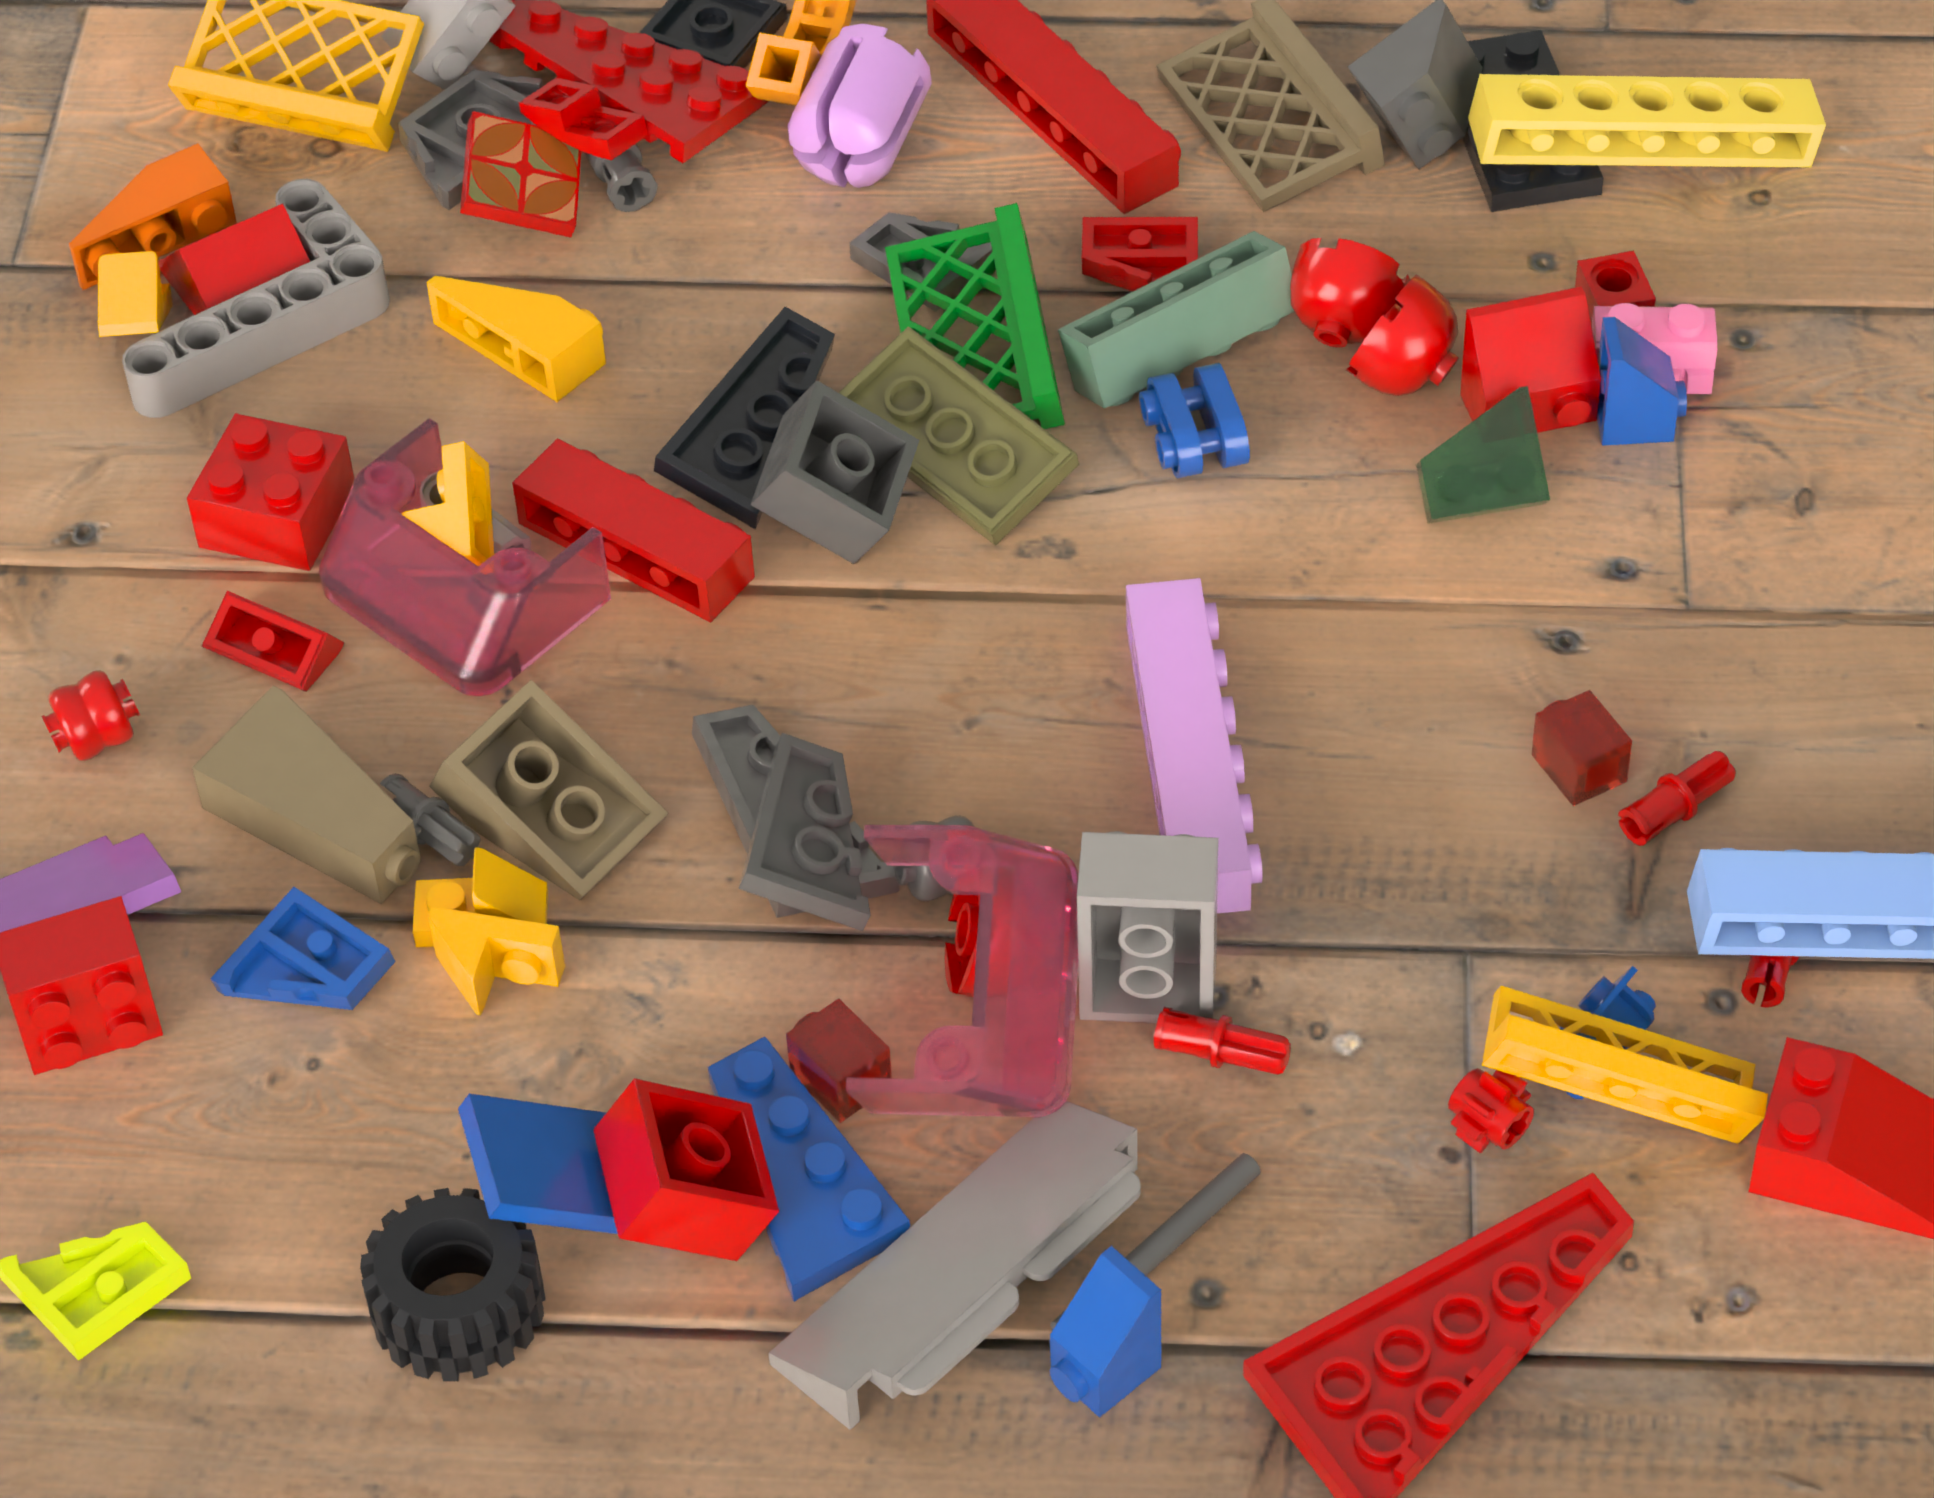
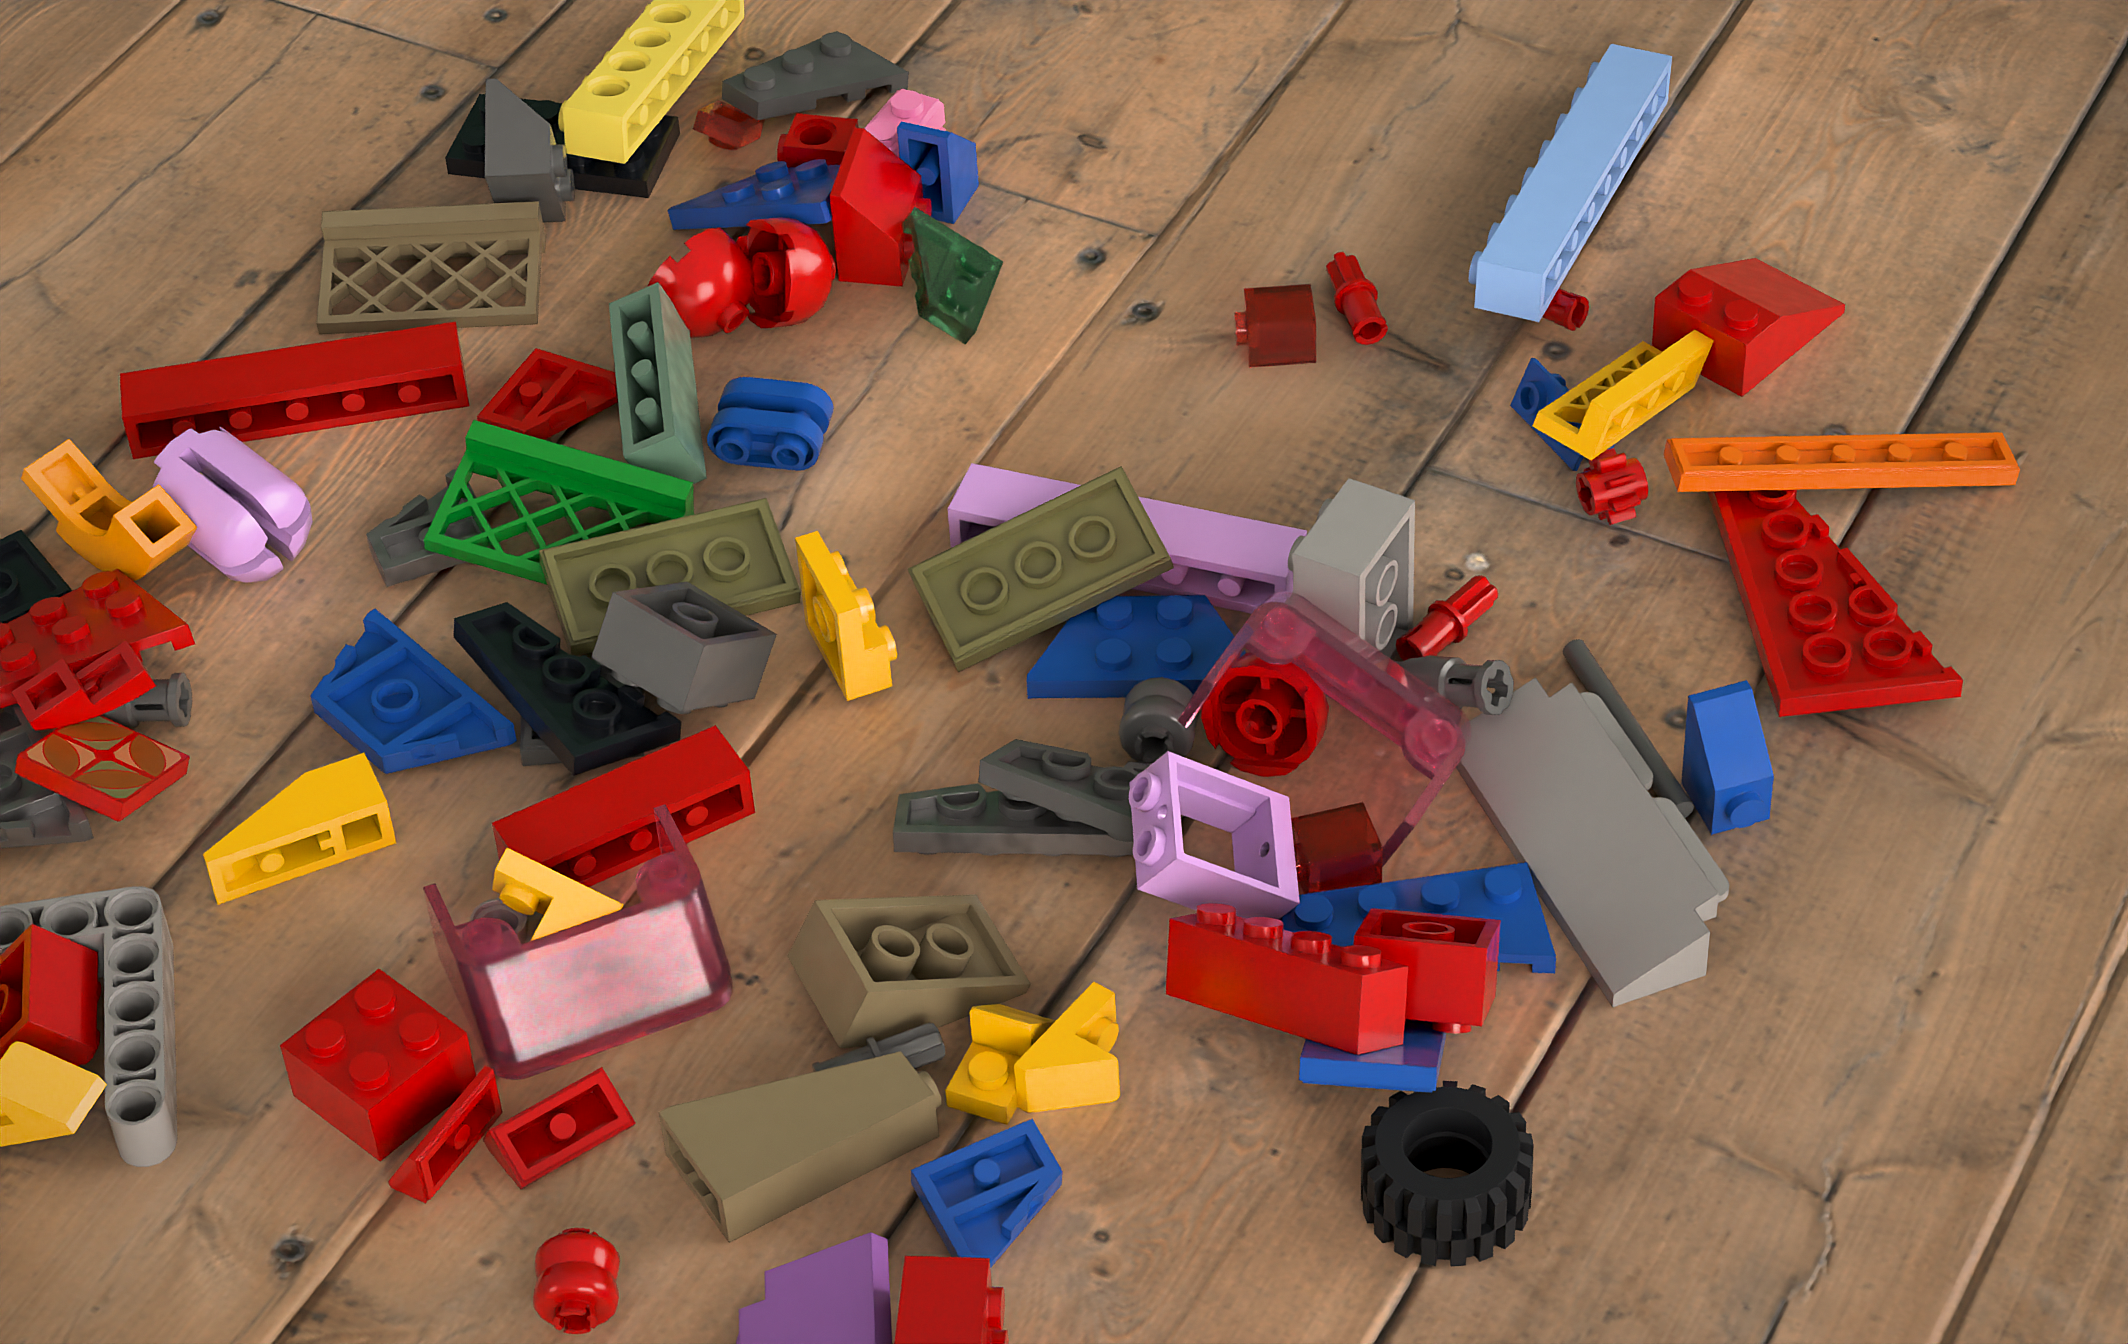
camera: 65 degrees left, 5 degrees down
(217, 571) = (450, 1139): none -> red slope
(596, 1062) = (1287, 979): none -> red brick
(704, 323) = (404, 703): none -> blue wing
(792, 1004) = (1253, 815): none -> lavender window
(929, 566) = (843, 621): none -> yellow plate
(1049, 791) = (1128, 642): none -> blue wing
(1090, 687) = (1040, 568): none -> olive tile
(1098, 1067) = (1465, 683): none -> dark grey piece
(1497, 273) = (770, 193): none -> blue wing
(1612, 216) = (727, 125): none -> clear red plate
(1656, 1307) = (1840, 461): none -> orange tile
(1739, 248) = (814, 71): none -> dark grey wing

